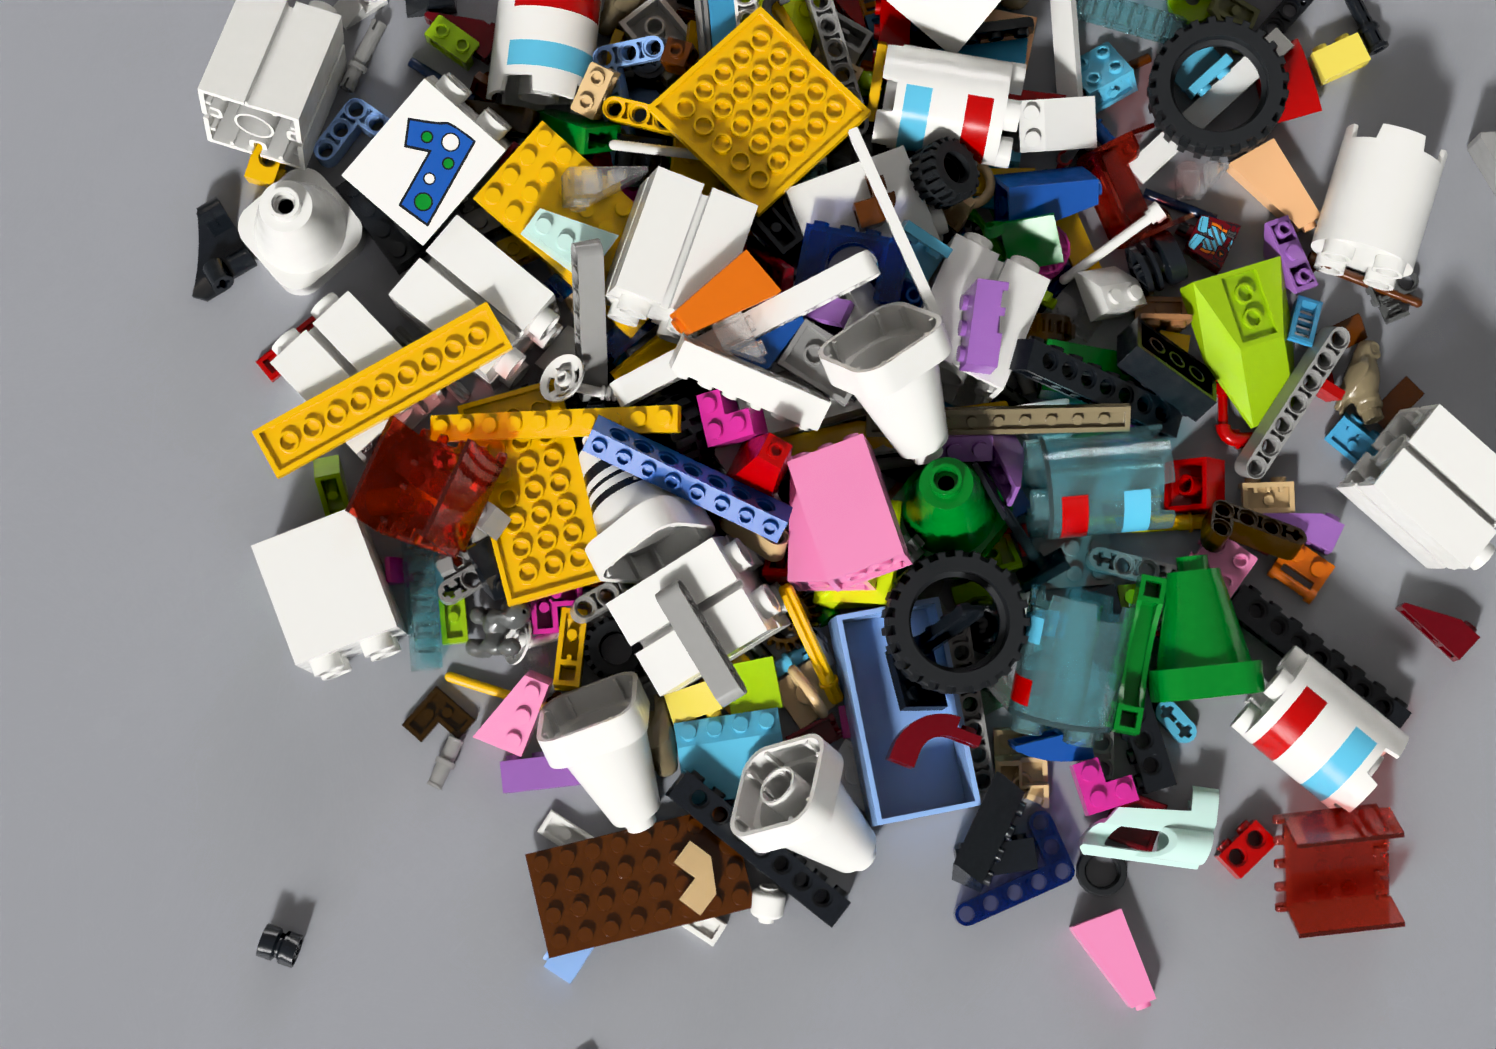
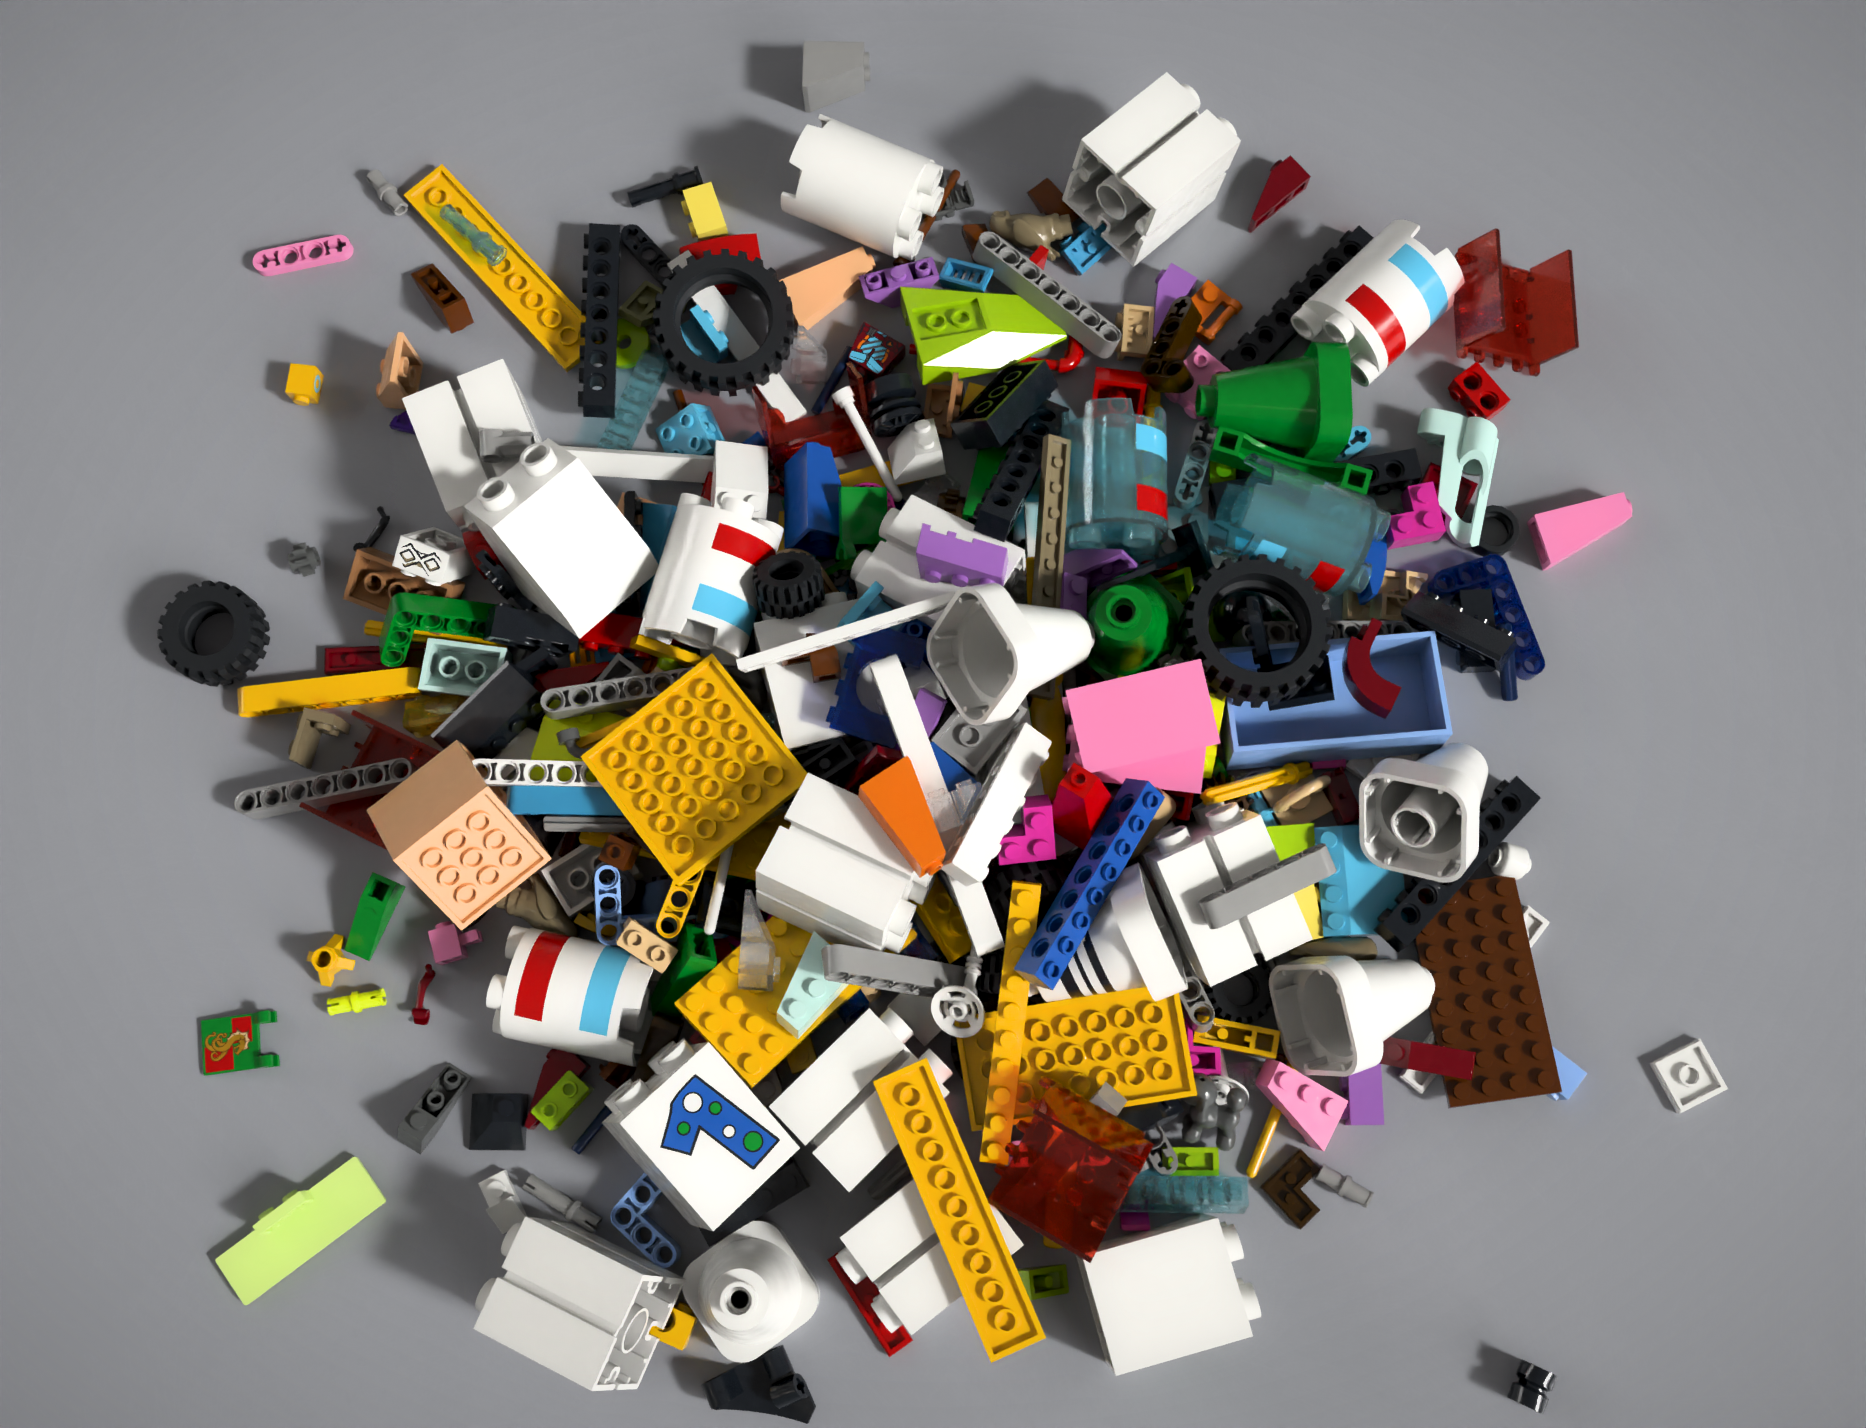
camera: 80 degrees left, 5 degrees down
(568, 827) = (1428, 1058): none -> dark red slope
(698, 865) = (1495, 923): tan tile -> none
(960, 891) = (1508, 674): none -> dark blue axle

